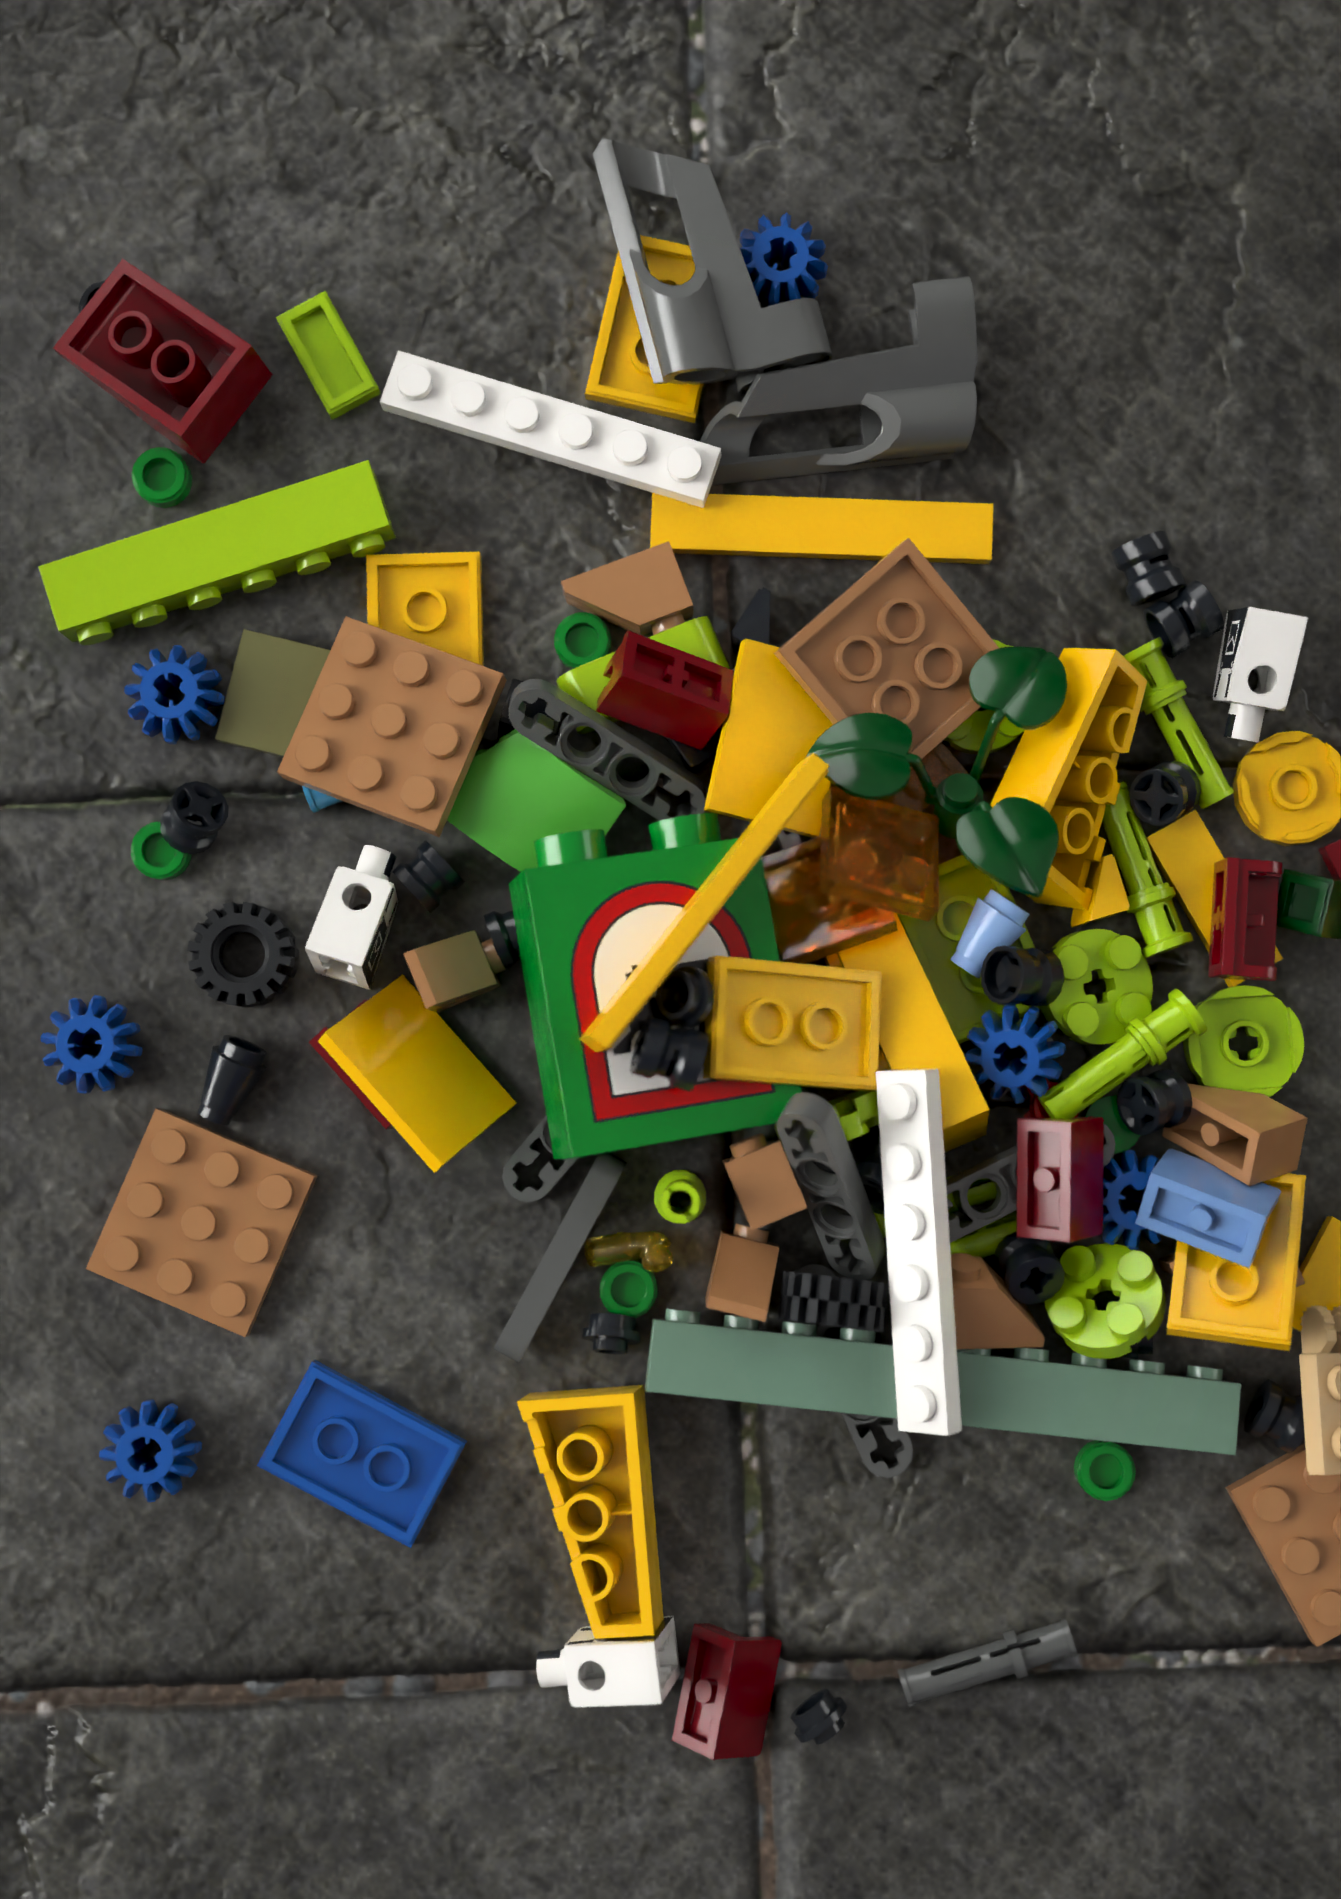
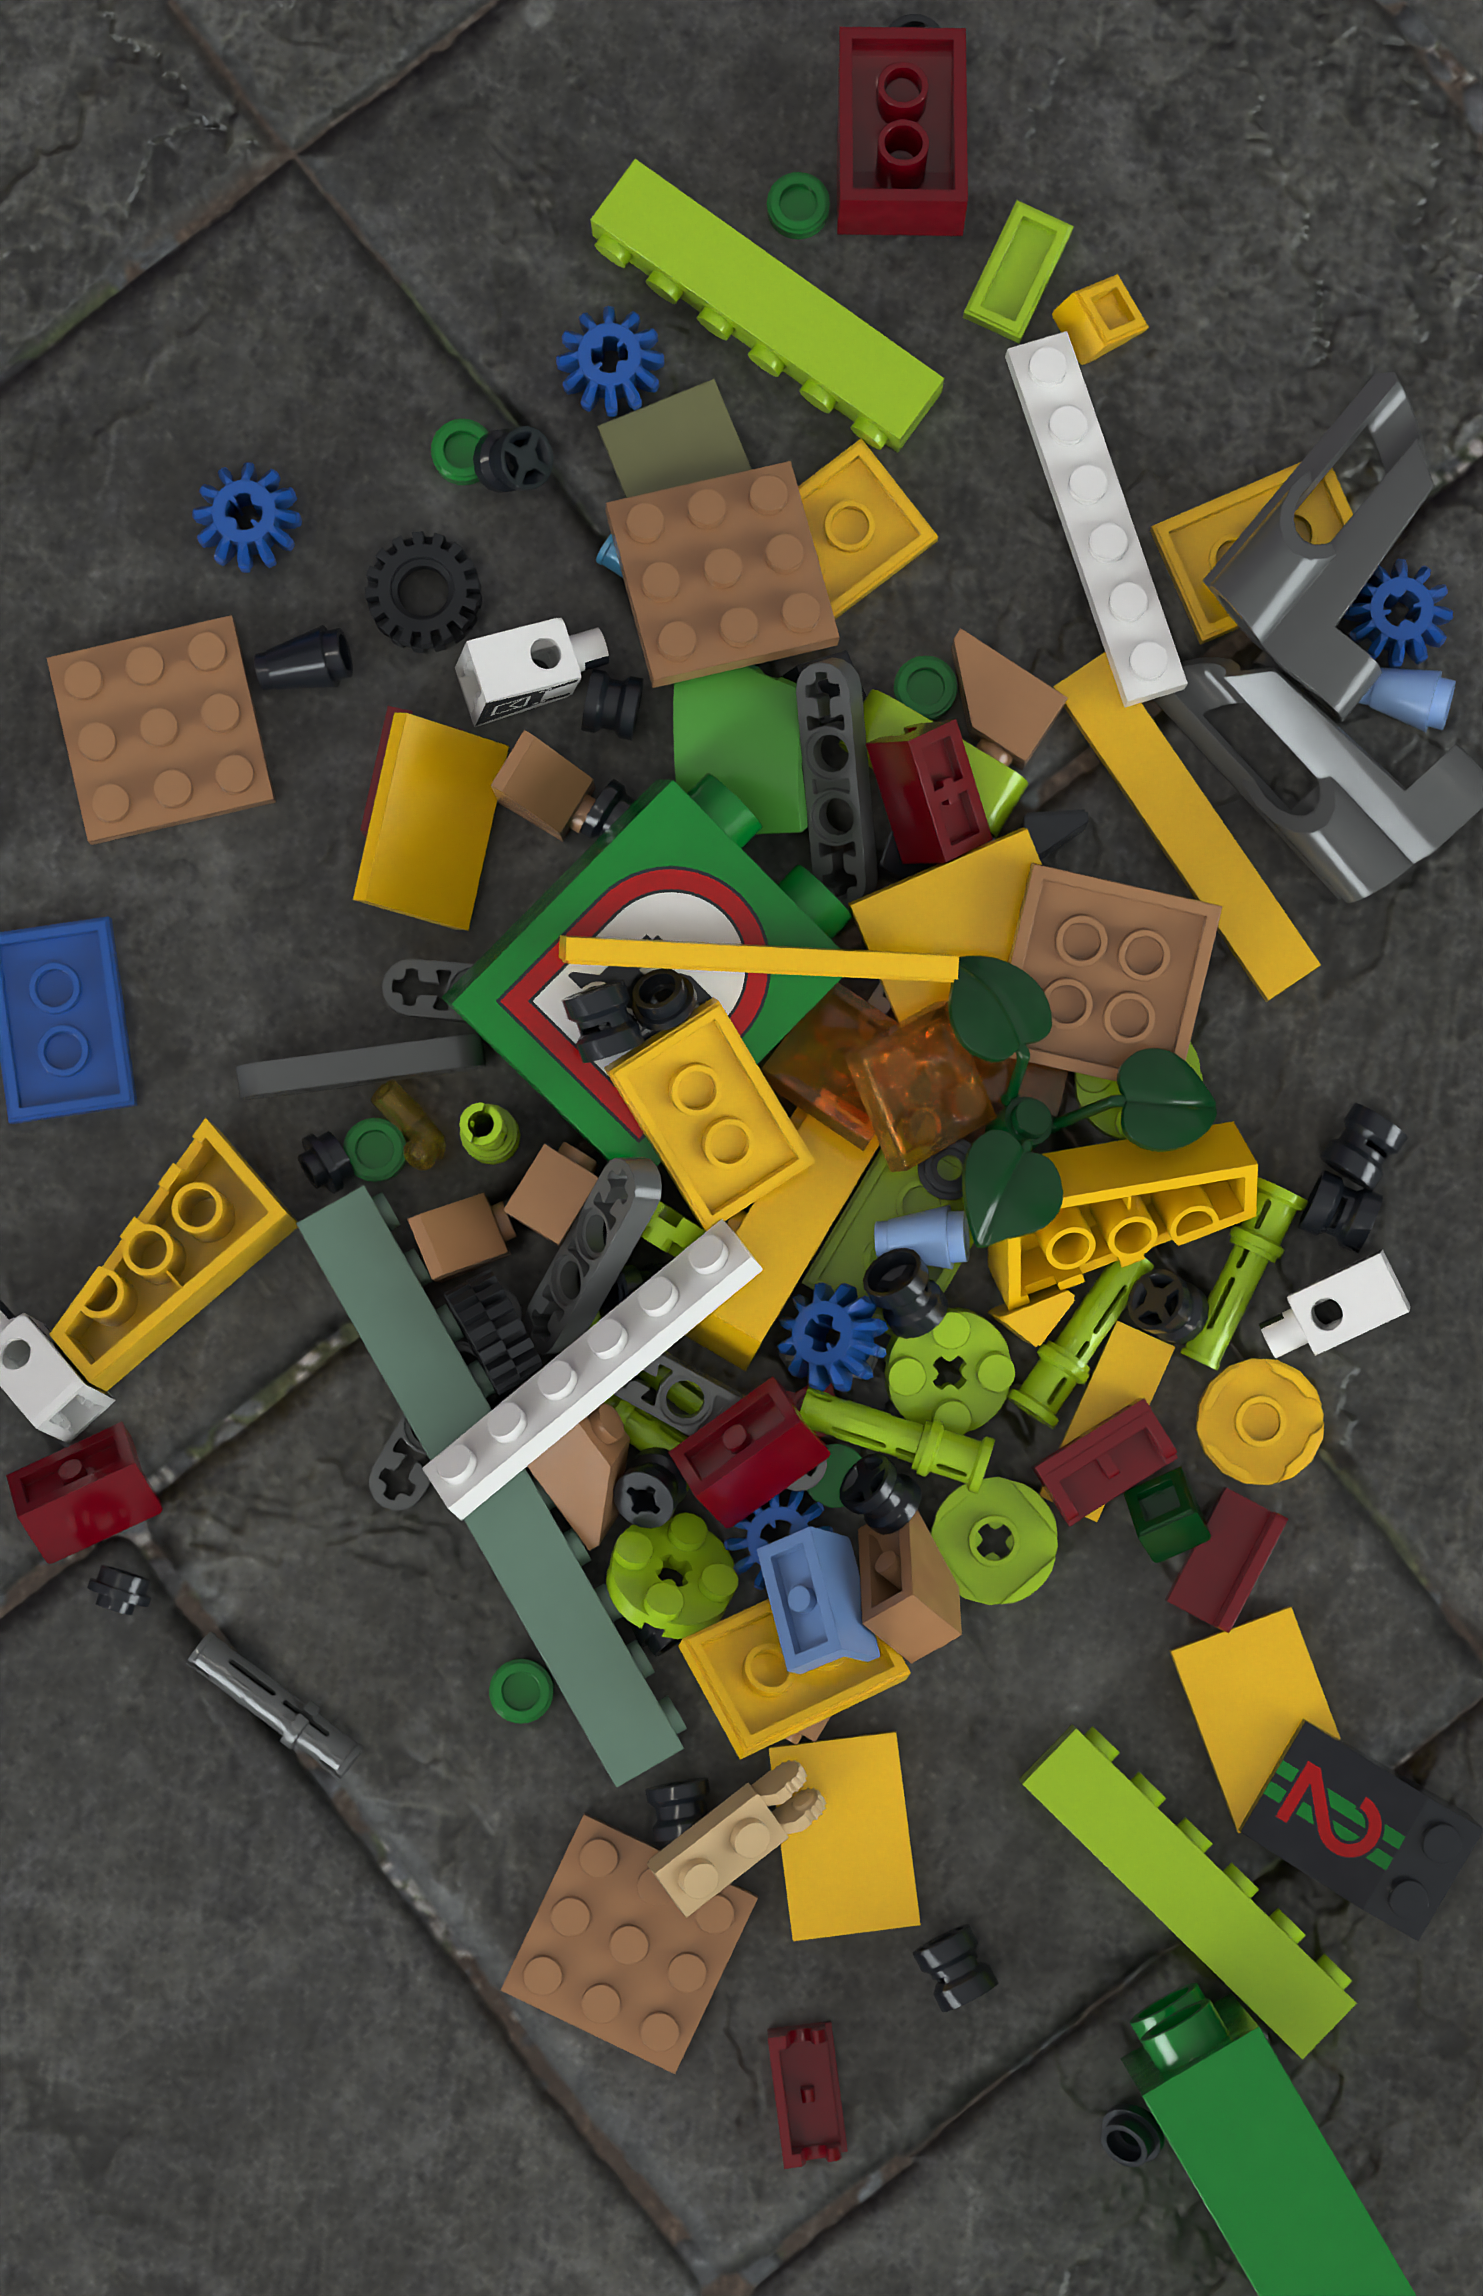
camera: 55 degrees right, 0 degrees up
(405, 322) = (1099, 318): none -> yellow slope
(849, 295) = (1412, 697): none -> light blue cone
(967, 874) = (934, 1182): none -> black plate

